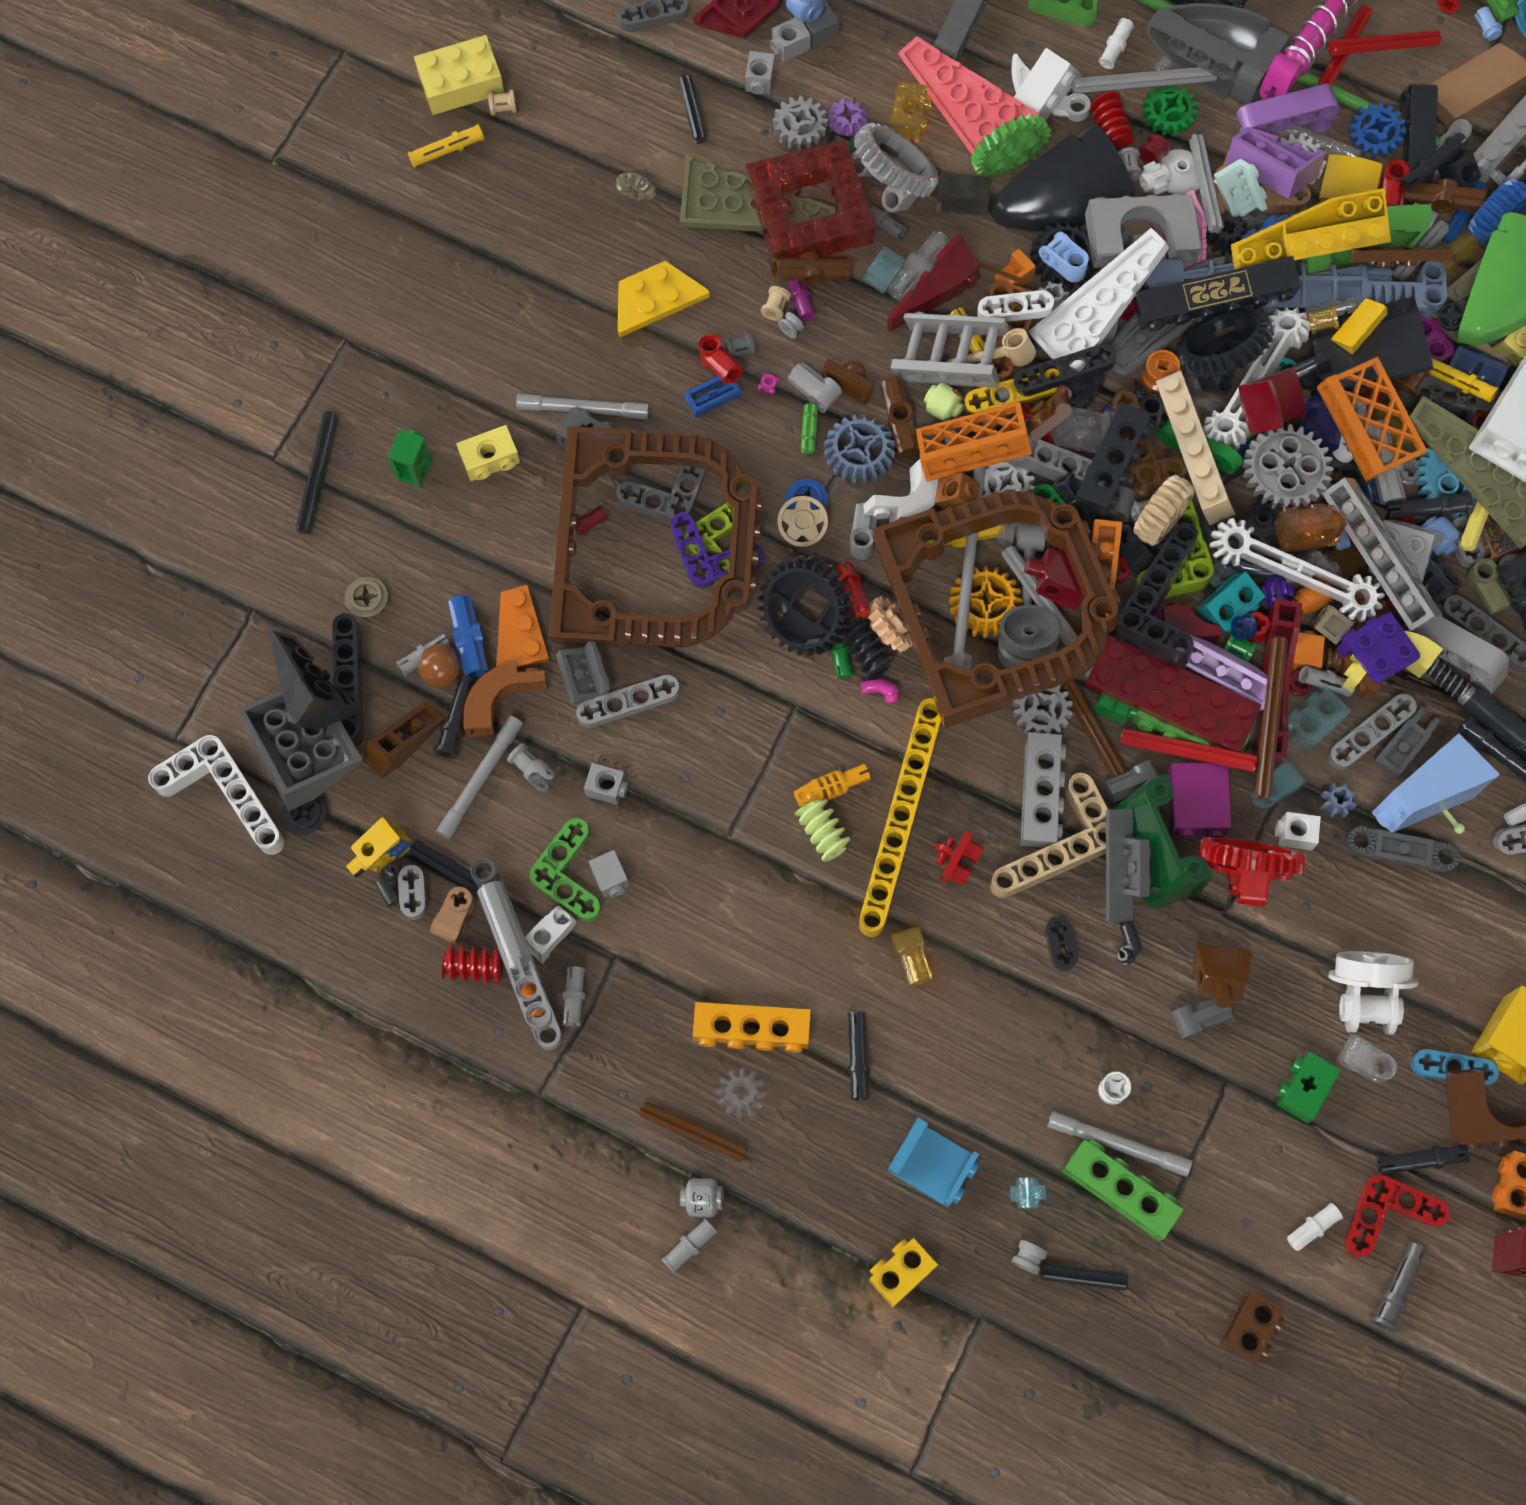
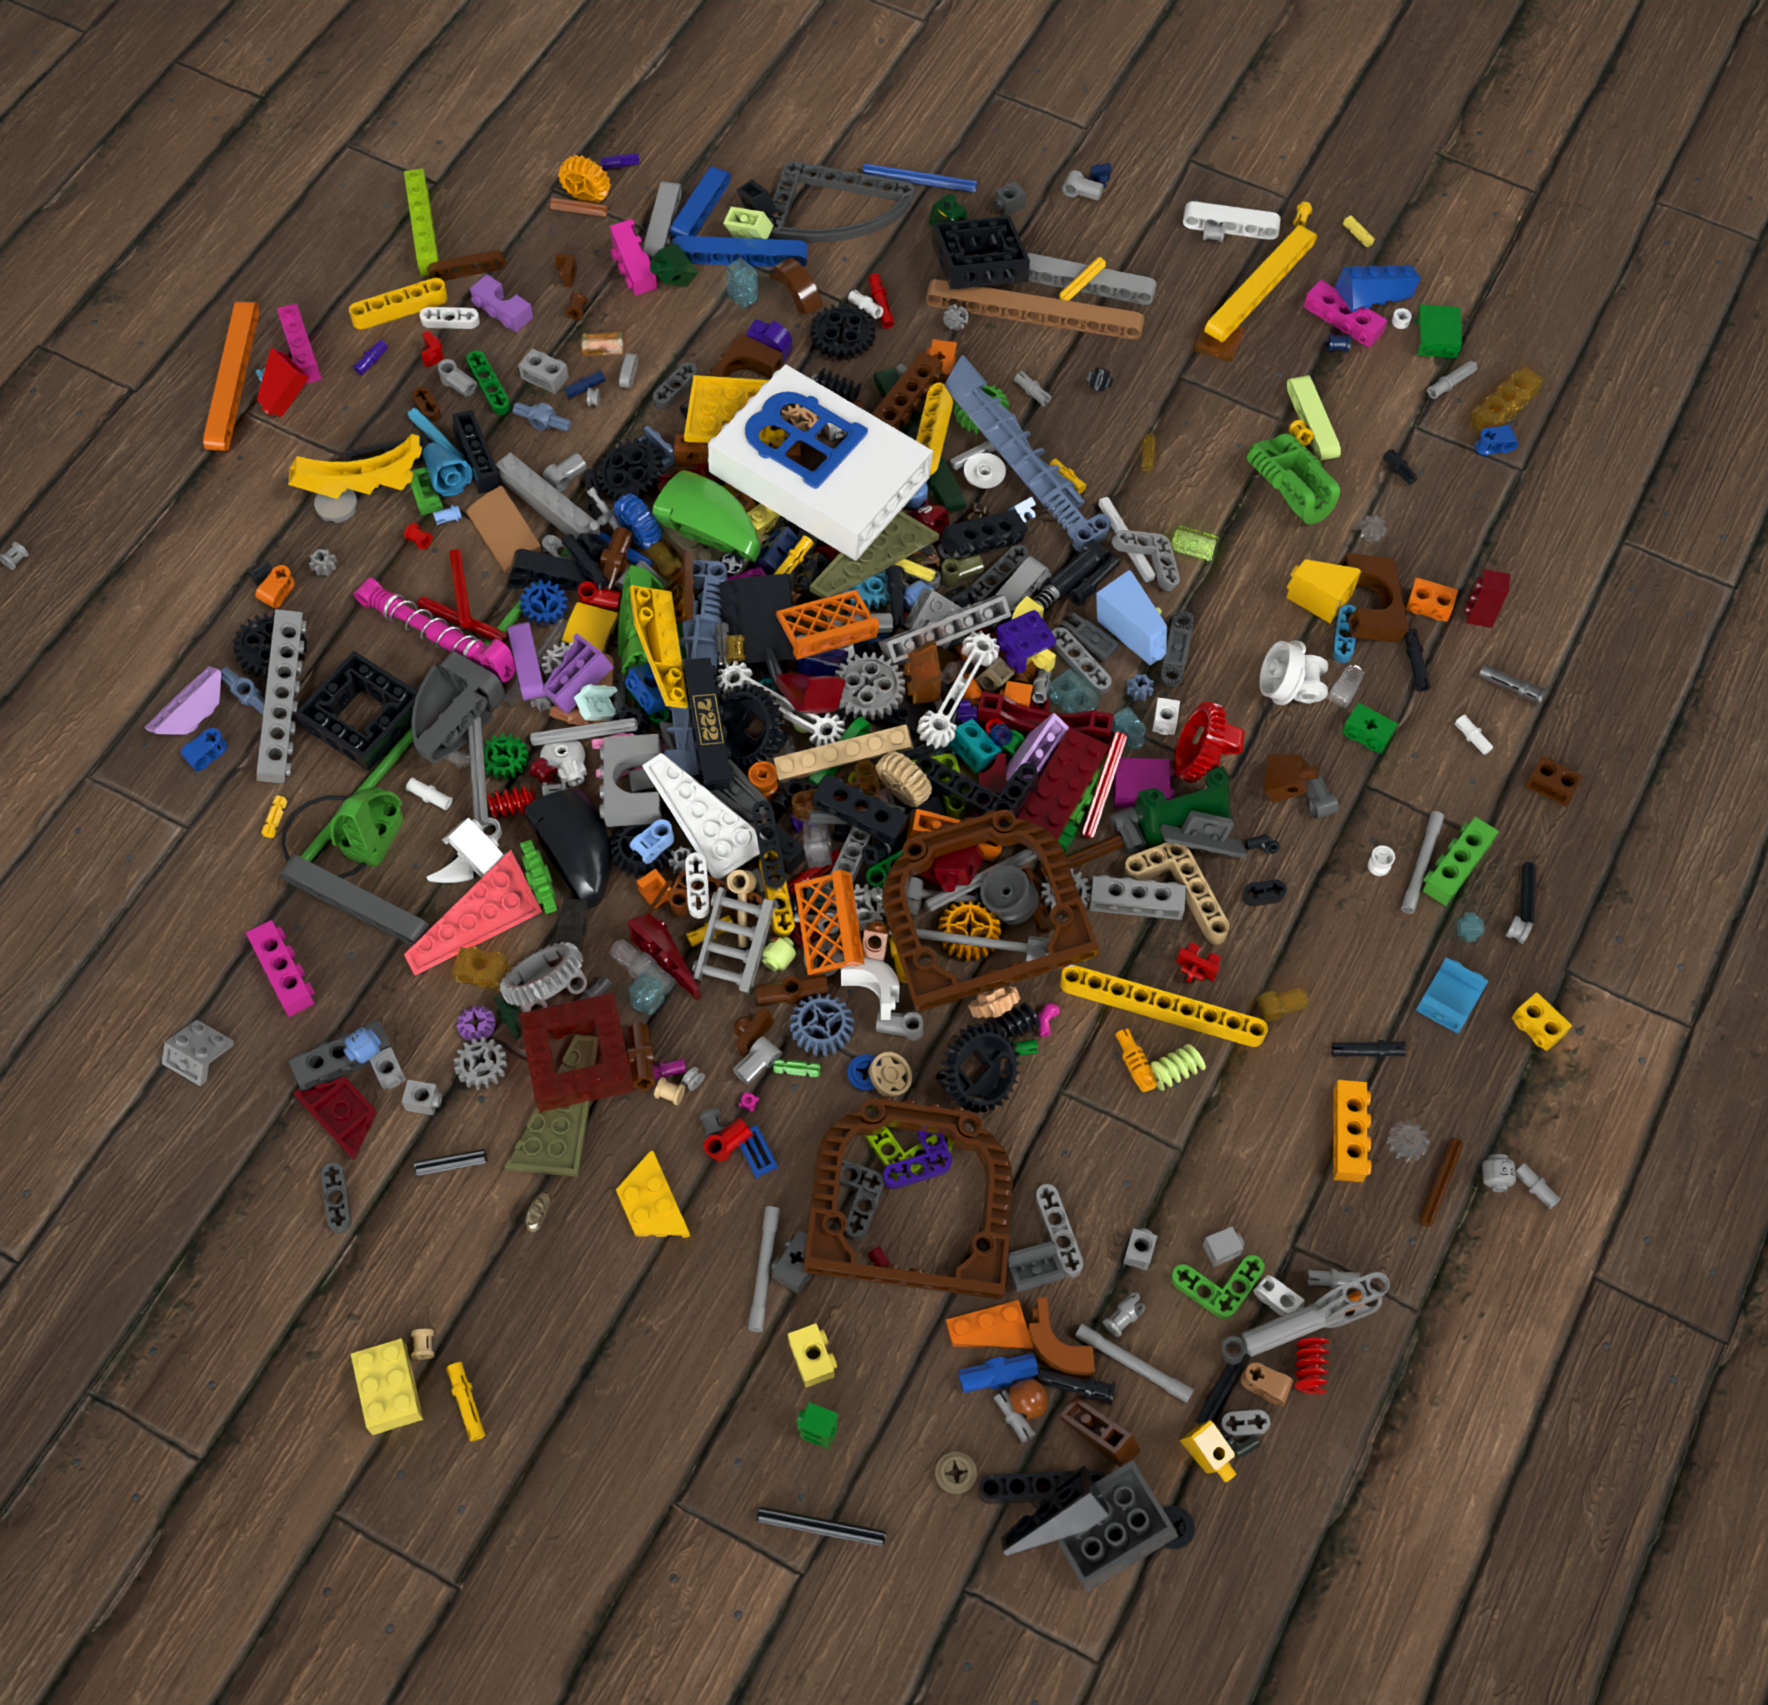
camera: 90 degrees left, 10 degrees down
(229, 785) = (1151, 1601): white beam -> none
(861, 605) = (942, 1038): red axle -> none
(1050, 413) = (810, 865): reddish brown plate -> none
(1271, 718) = (1083, 718): reddish brown axle -> none
(1360, 325) = (744, 622): yellow slope -> none
(1390, 1201) = (1448, 685): red beam -> none

